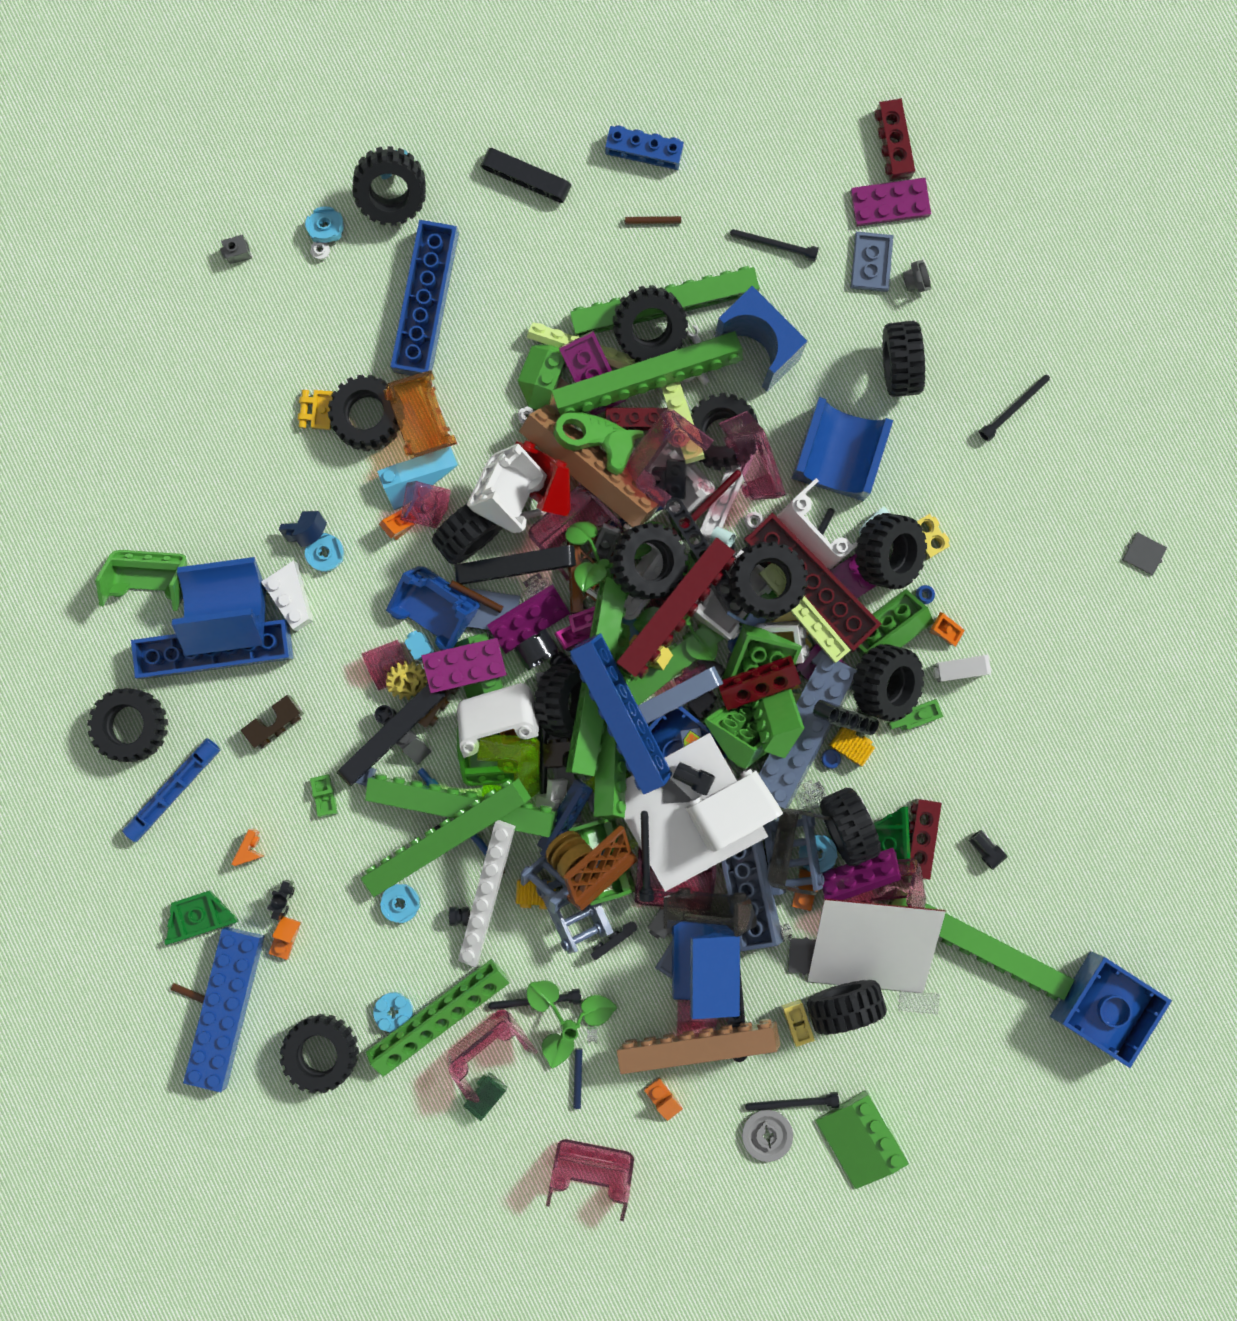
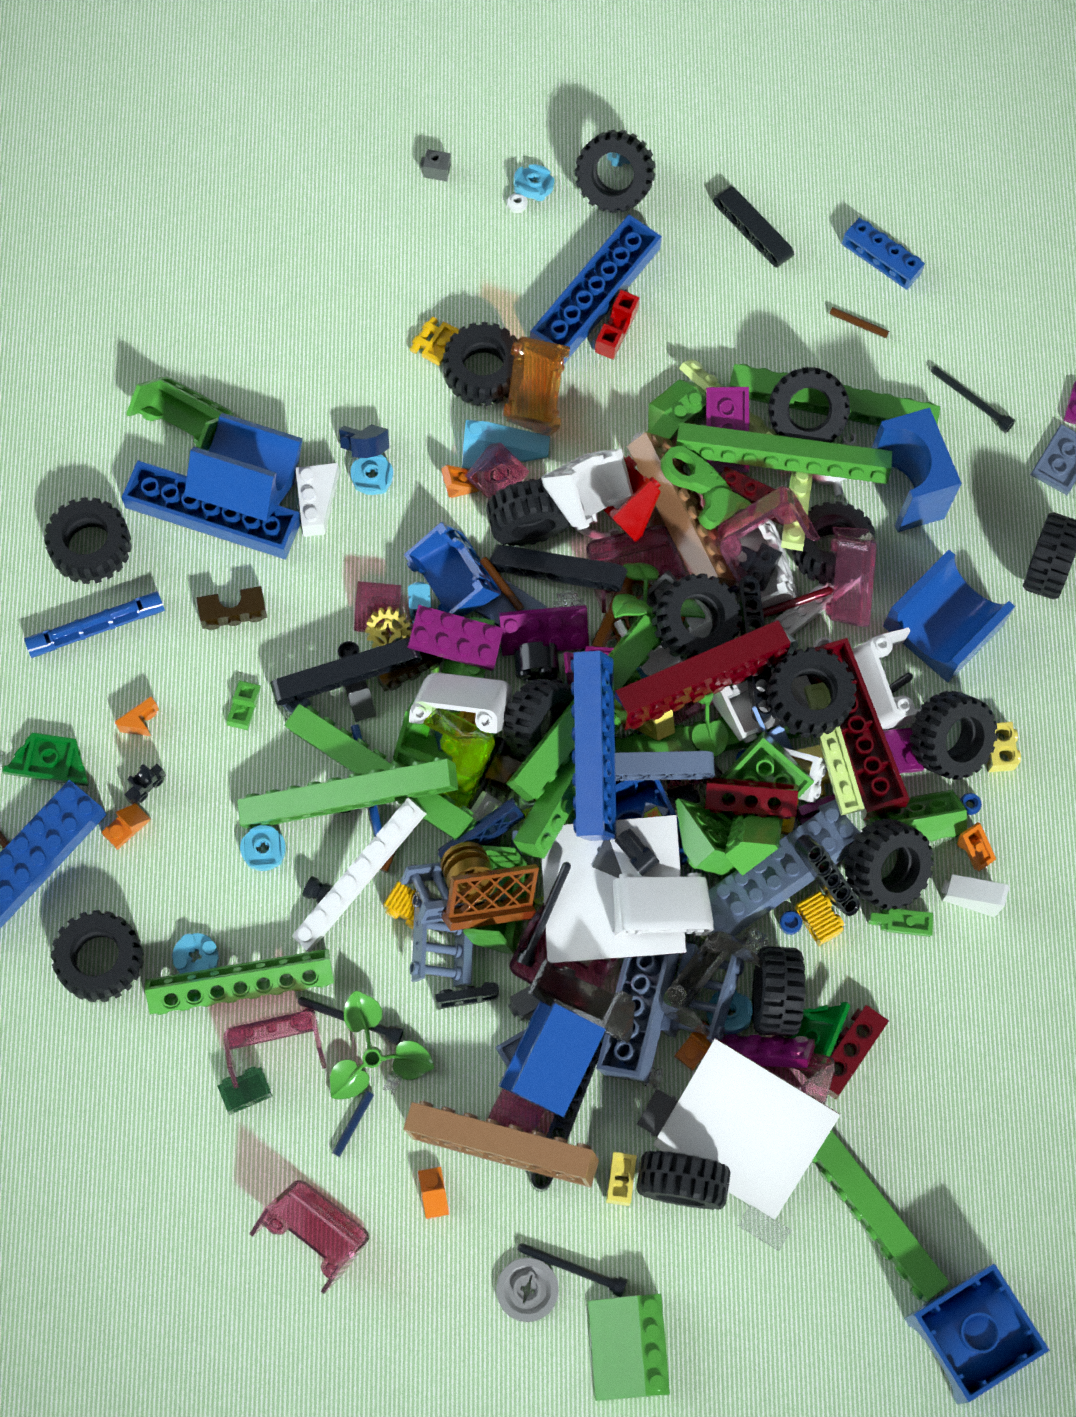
camera: 20 degrees right, 15 degrees down
(458, 323) = (615, 330): none -> red arch
(990, 852) = (918, 1105): black piece -> none

